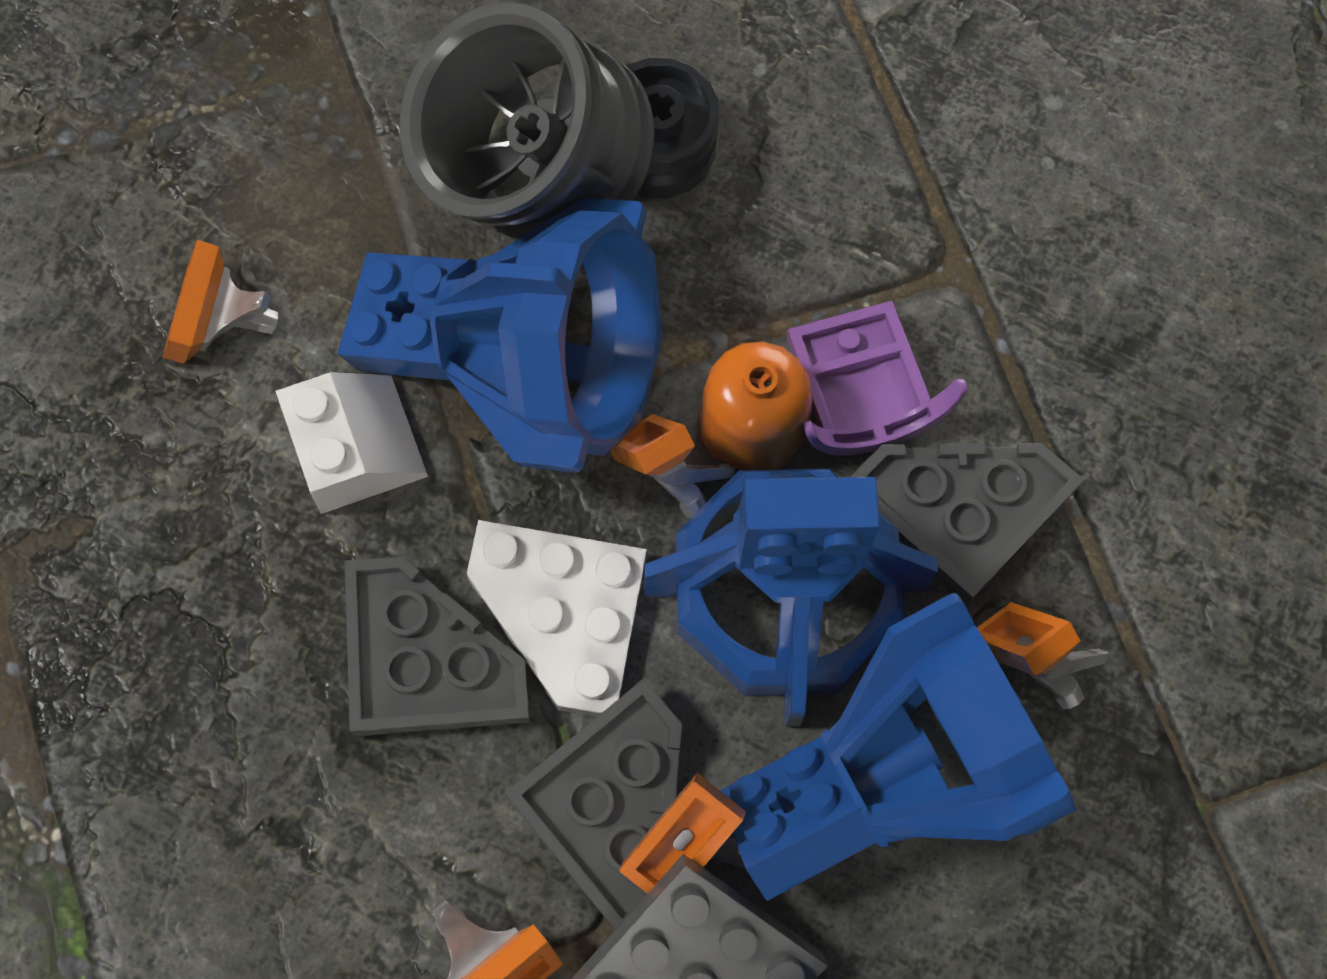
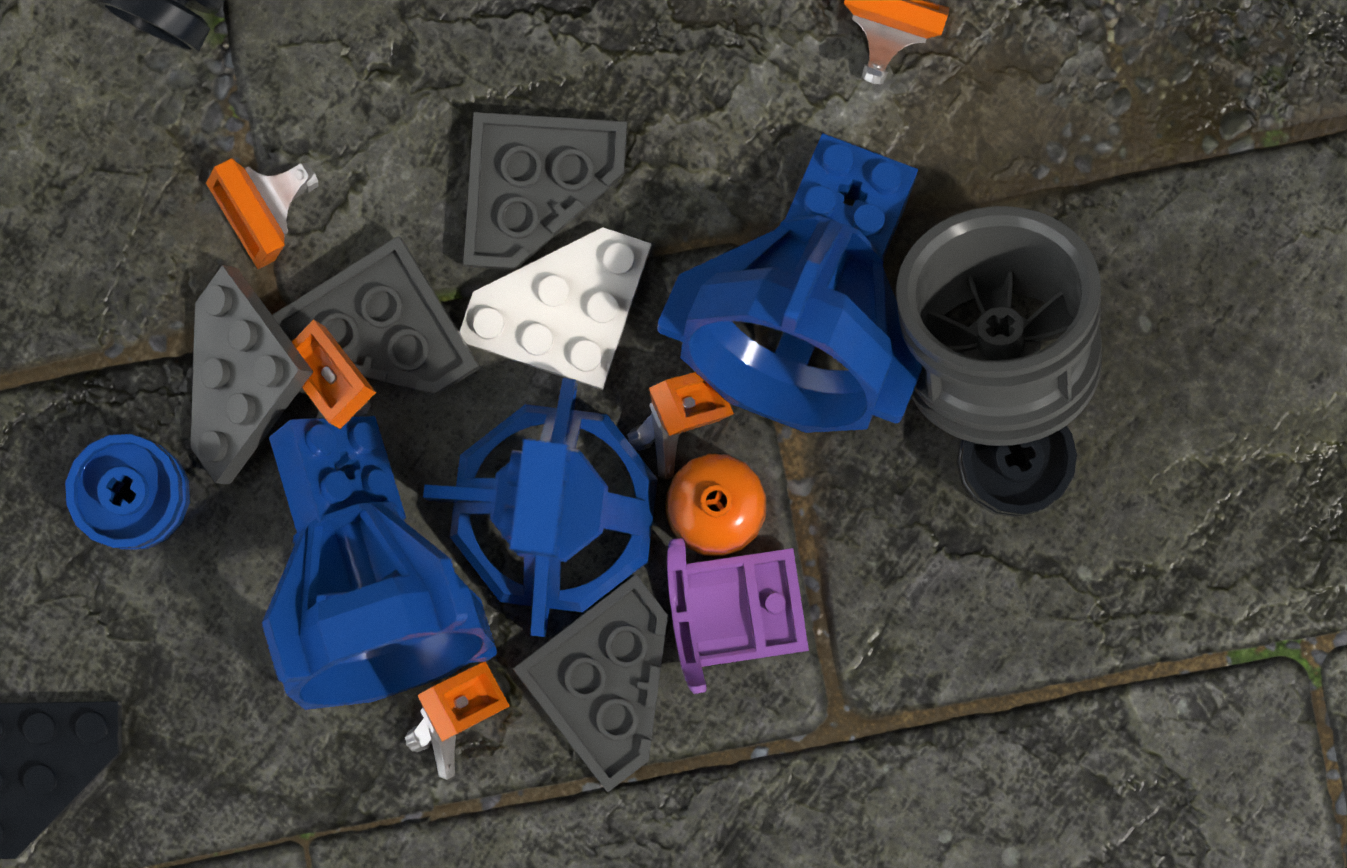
camera: 105 degrees right, 15 degrees up
(350, 437) = (744, 139): white slope -> none

